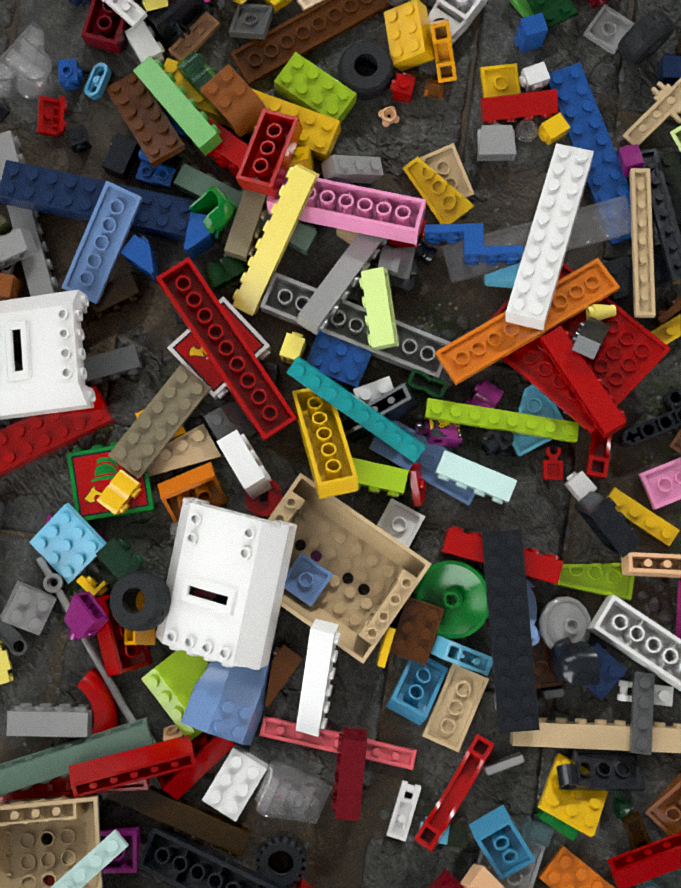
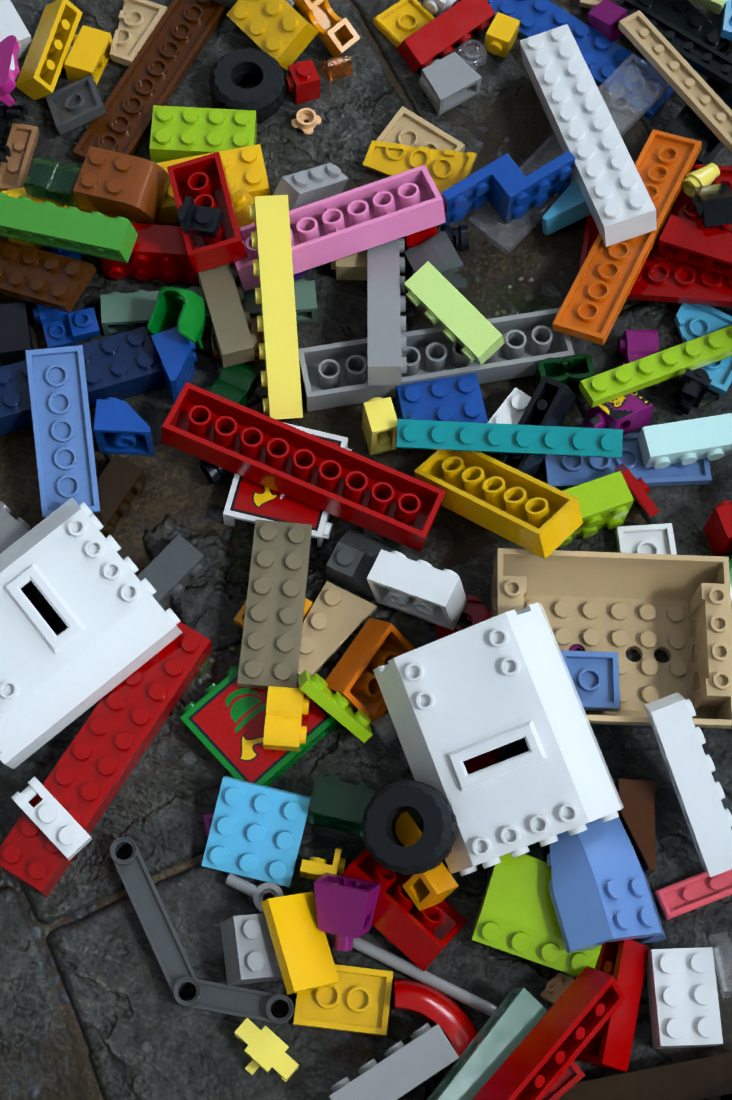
camera: 40 degrees left, 15 degrees down
(46, 621) = (299, 943): none -> yellow tile
(58, 661) = (353, 1005): none -> yellow plate
(152, 501) = (335, 705): none -> lime plate
(255, 158) = (199, 219): none -> black bracket

